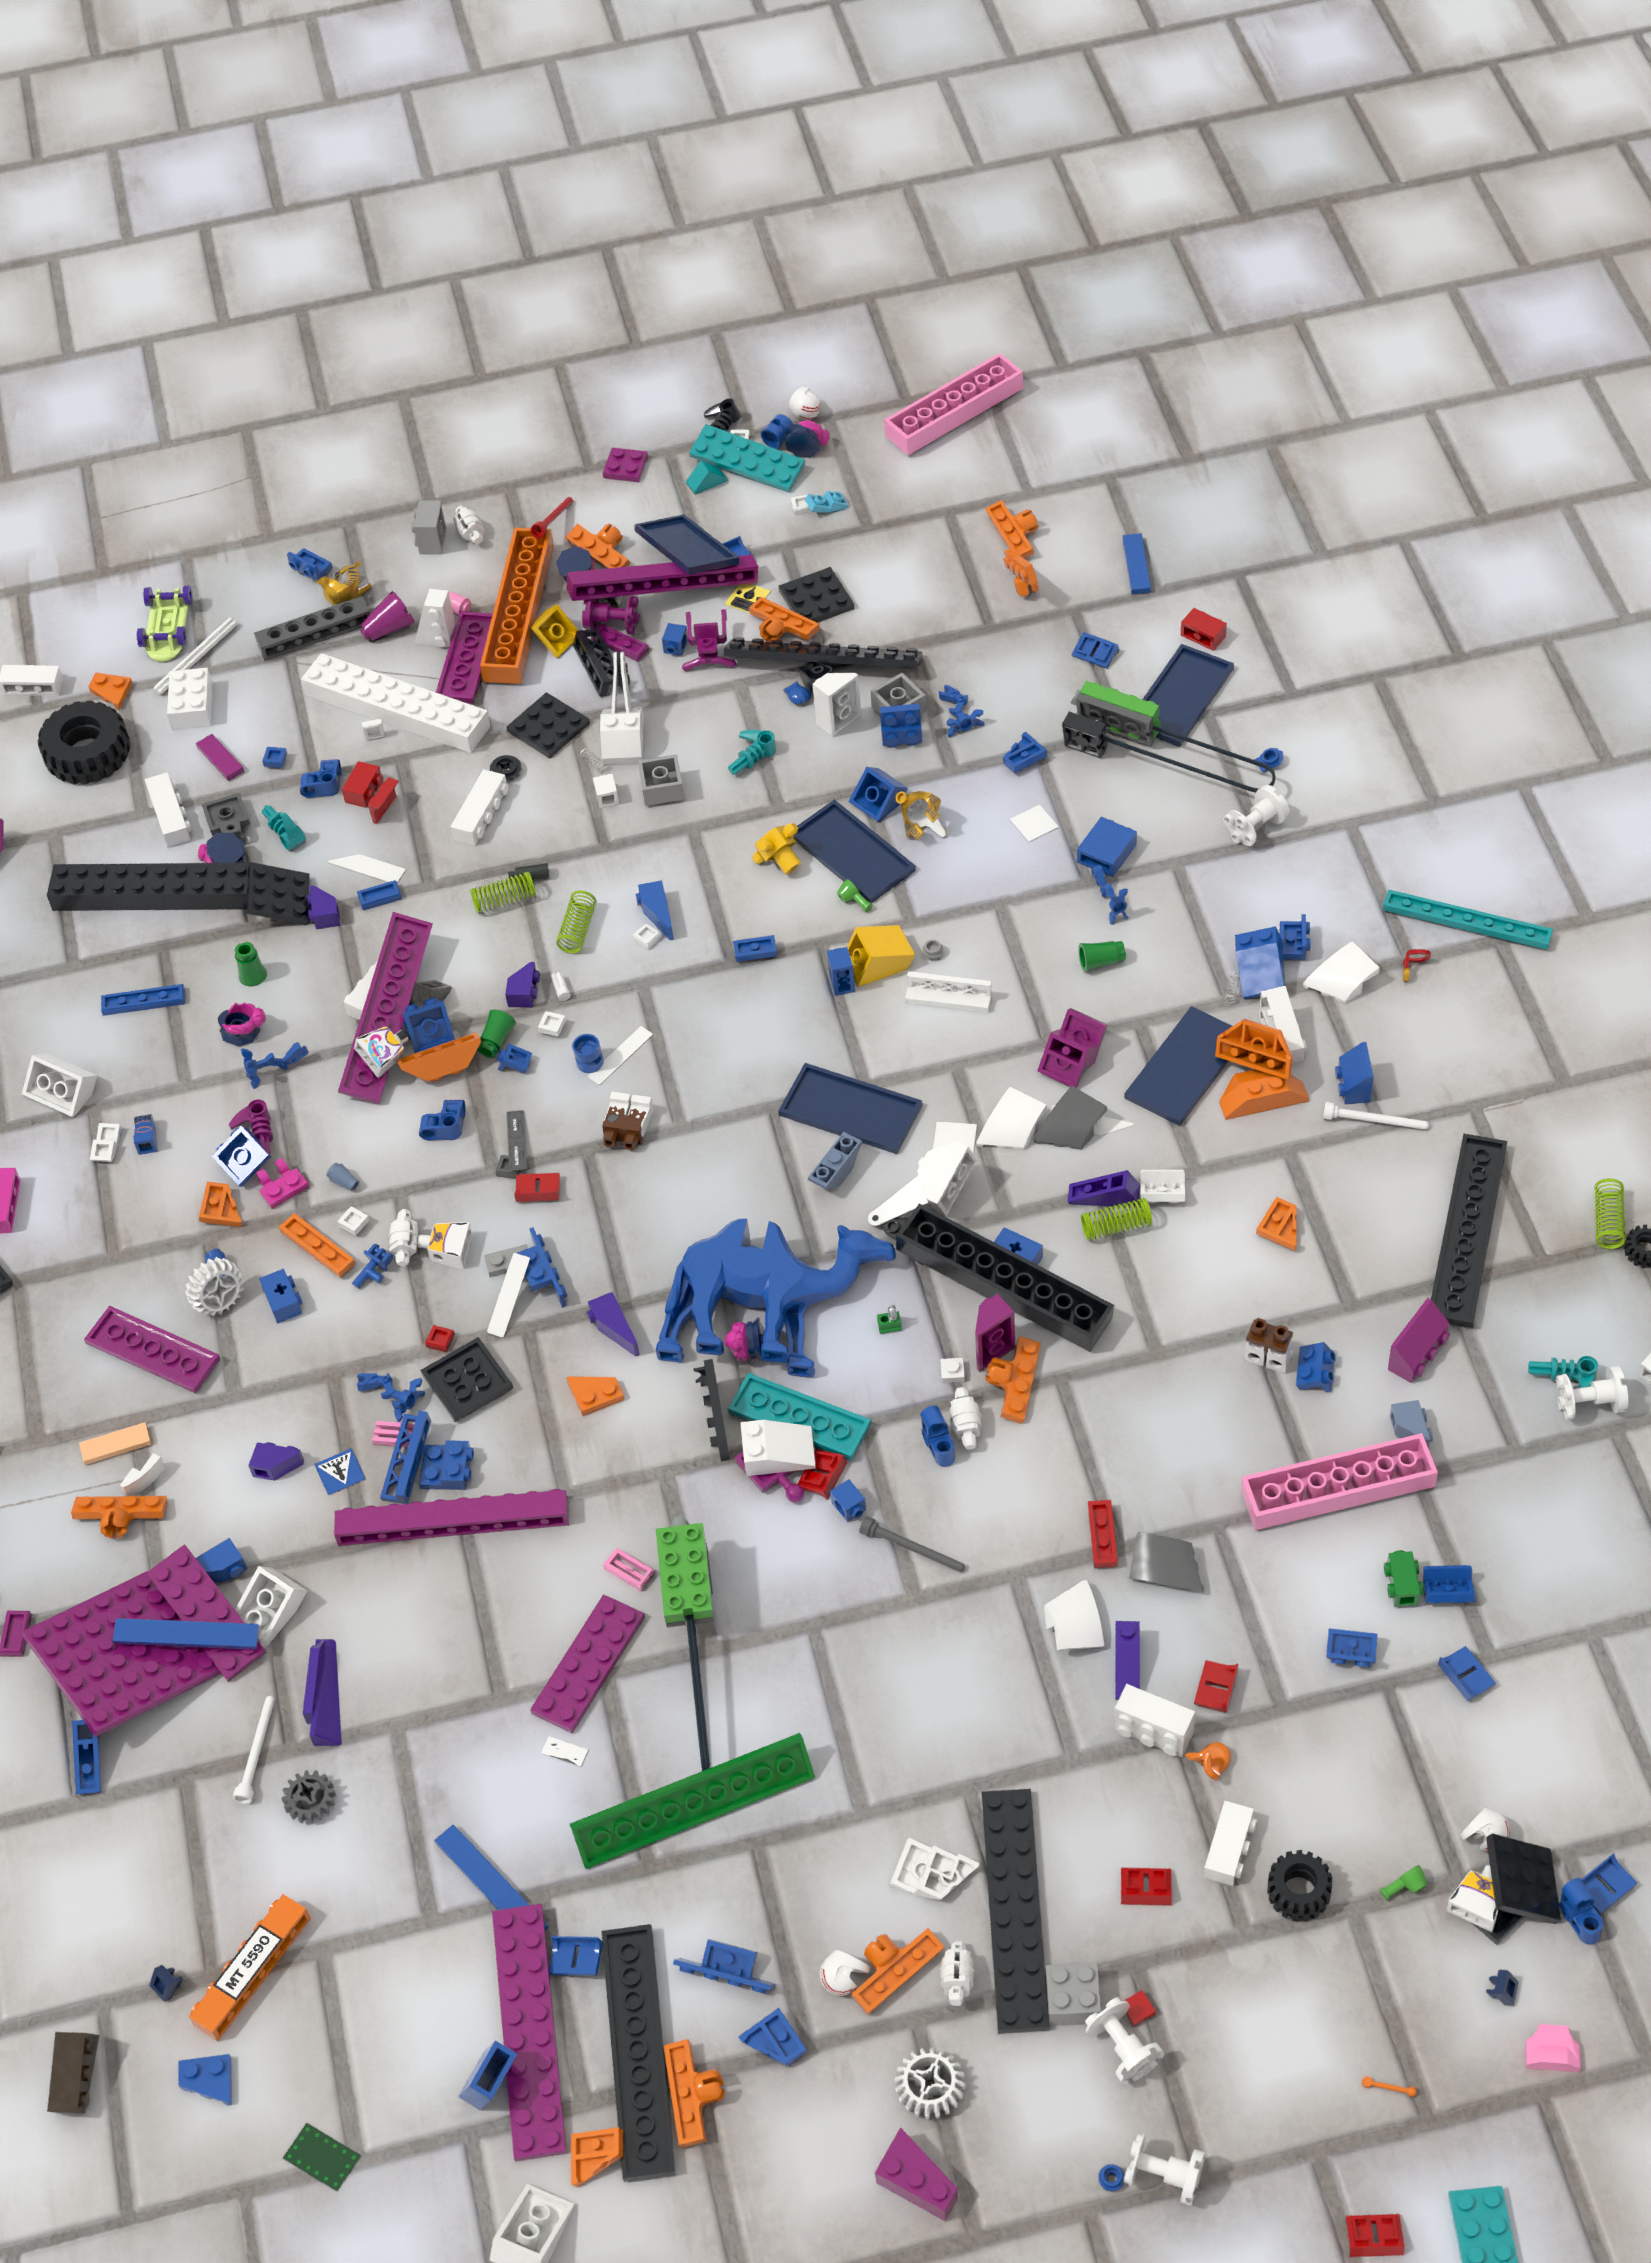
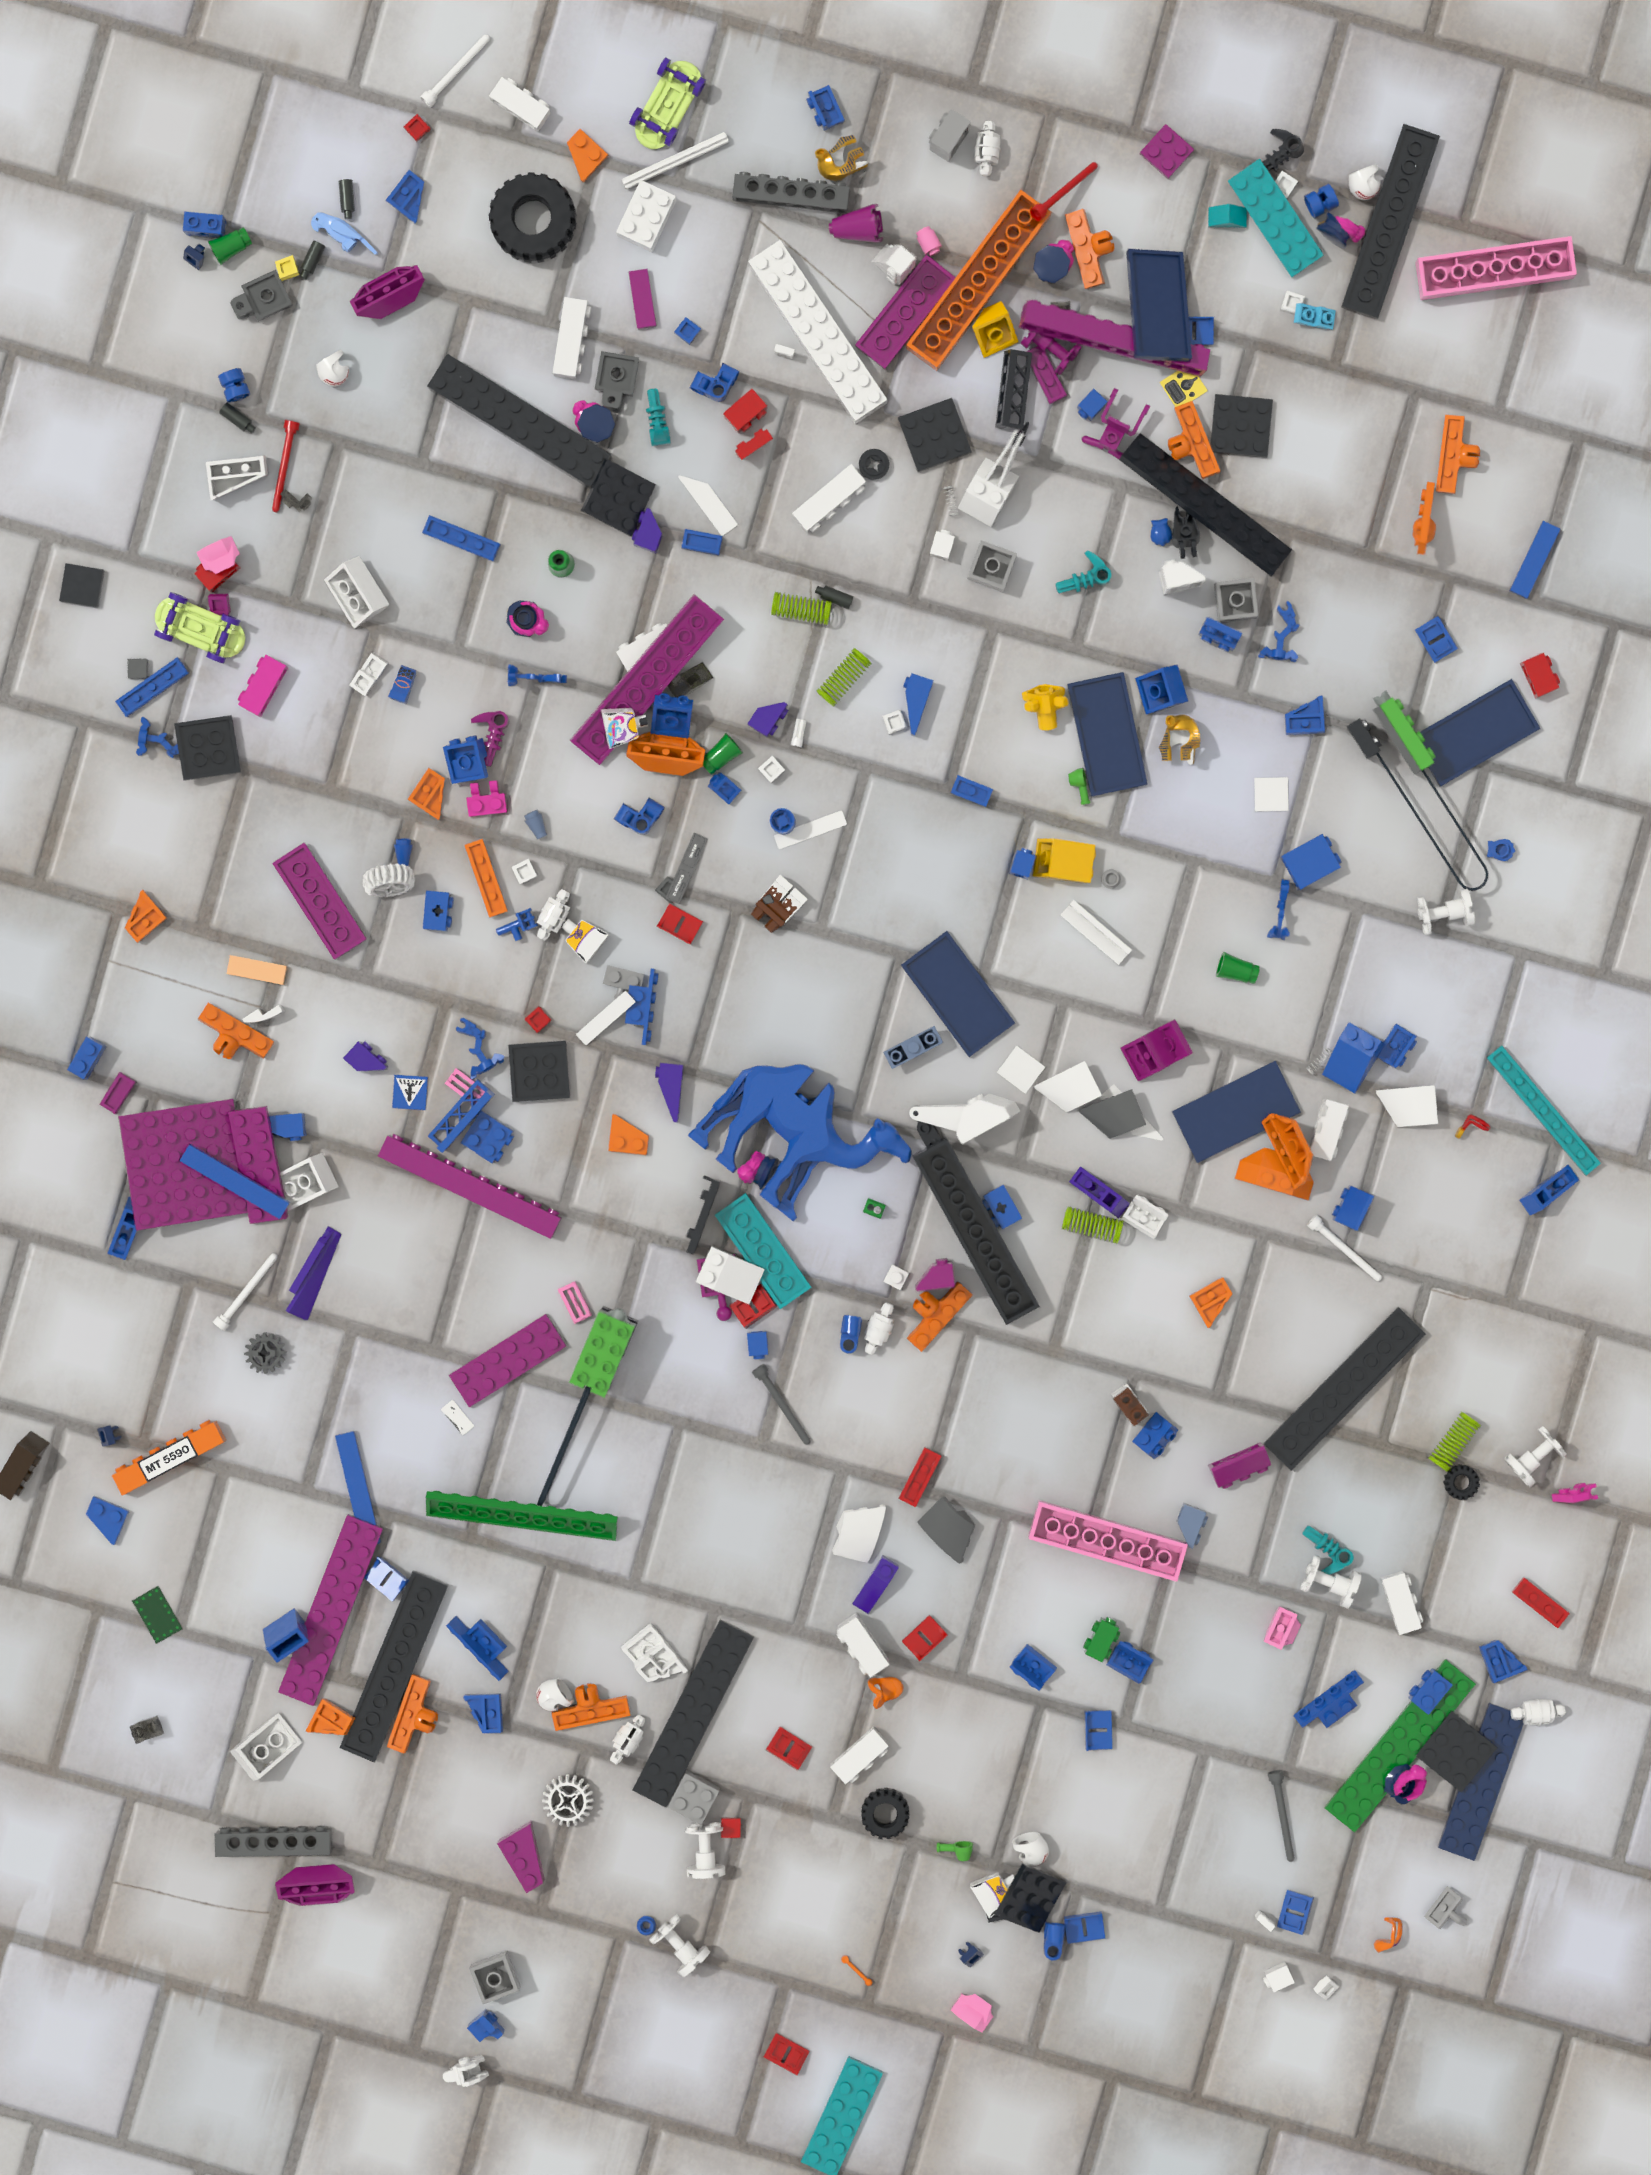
camera: 25 degrees right, 35 degrees up
(845, 421) = (1390, 221): none -> black plate
(1523, 975) = (1549, 1190): none -> blue slope
(1578, 1468) = (1282, 1628): none -> bright pink slope

